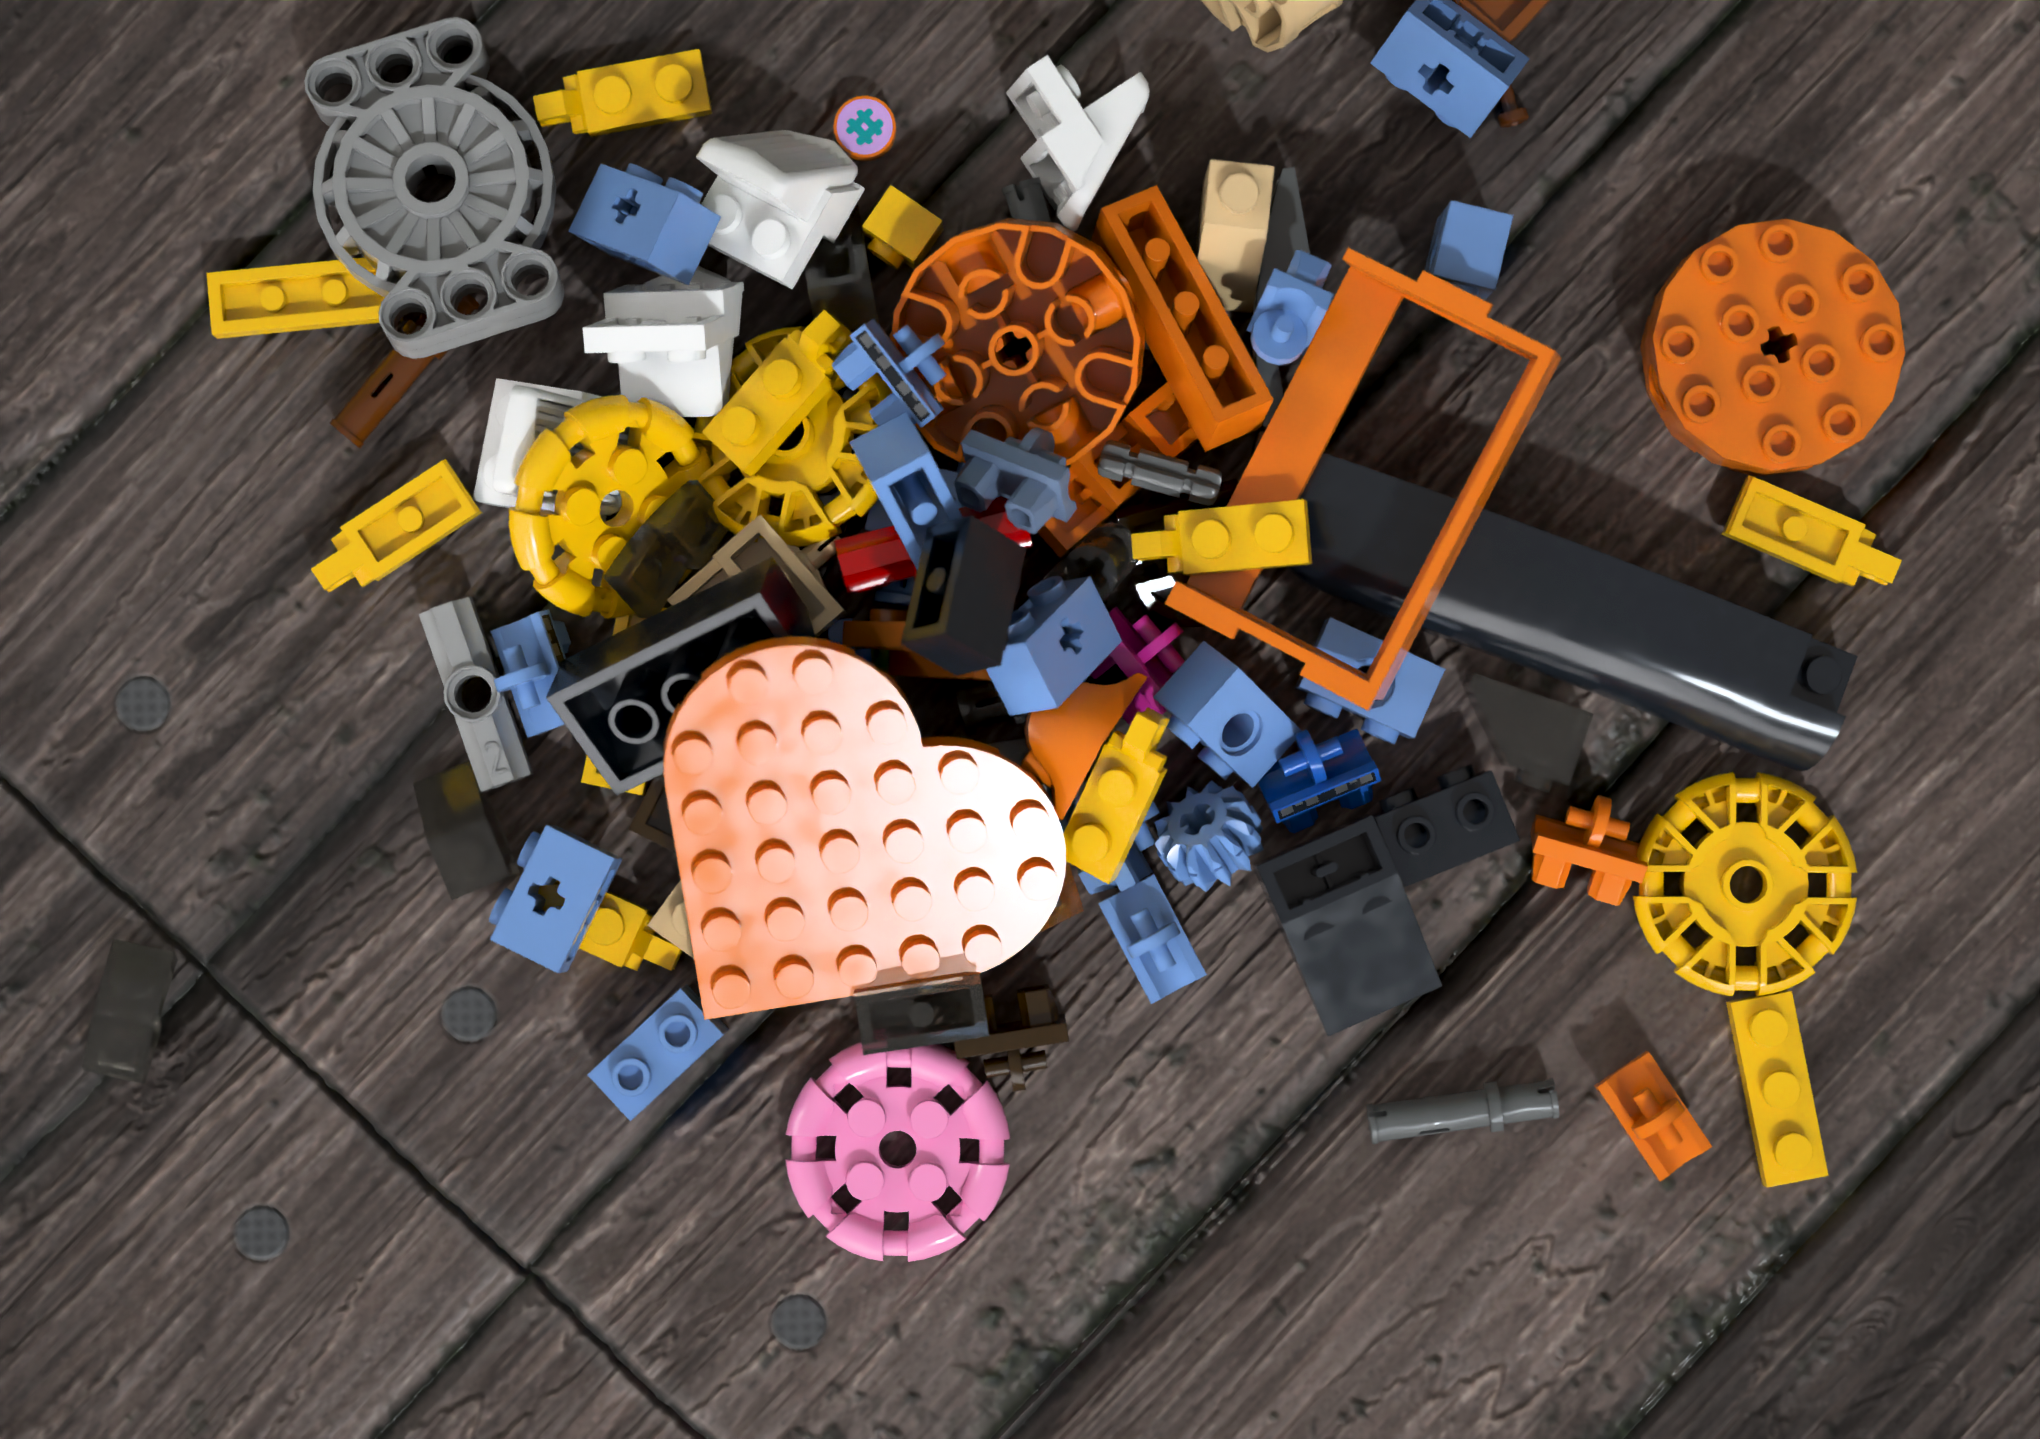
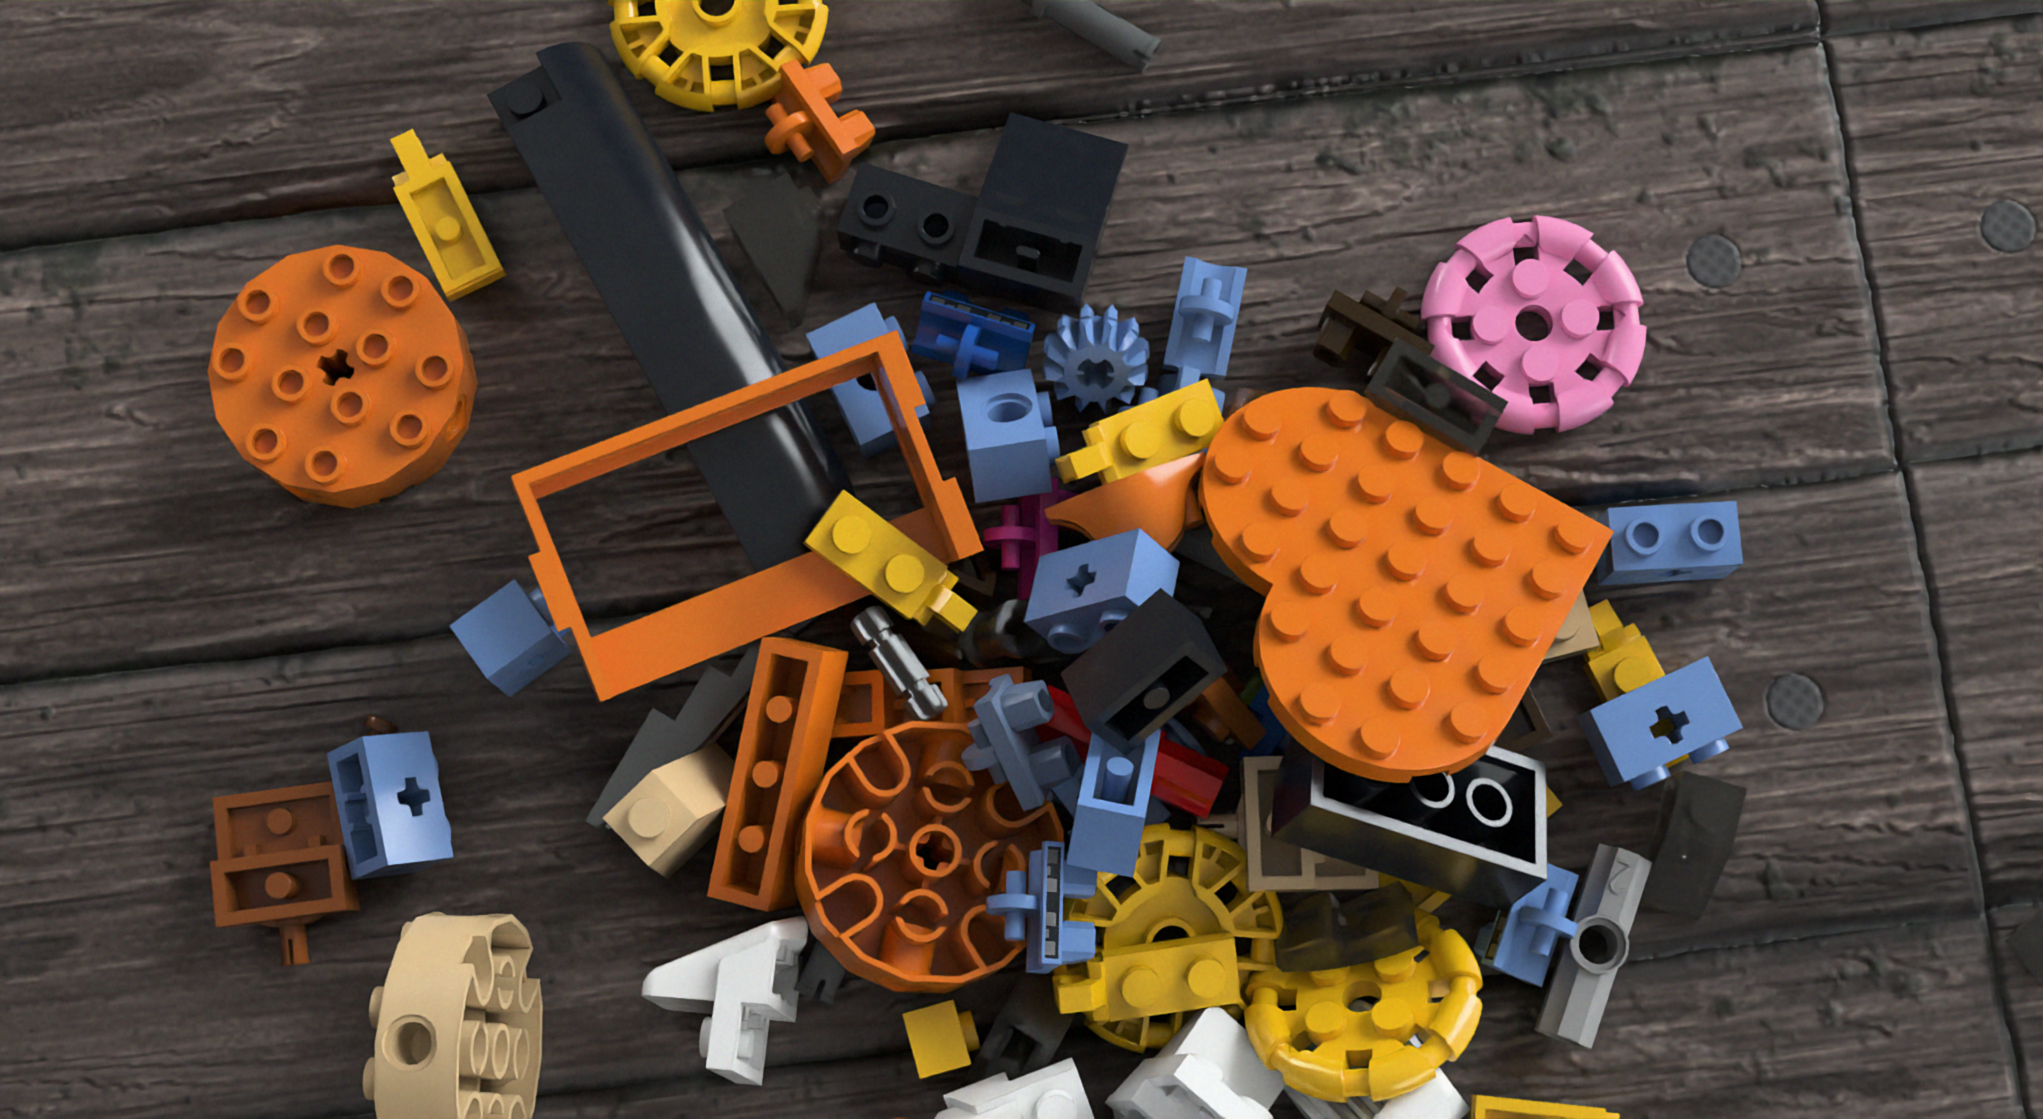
camera: 135 degrees left, 10 degrees down
(1290, 310) = (688, 696): medium blue hips -> none

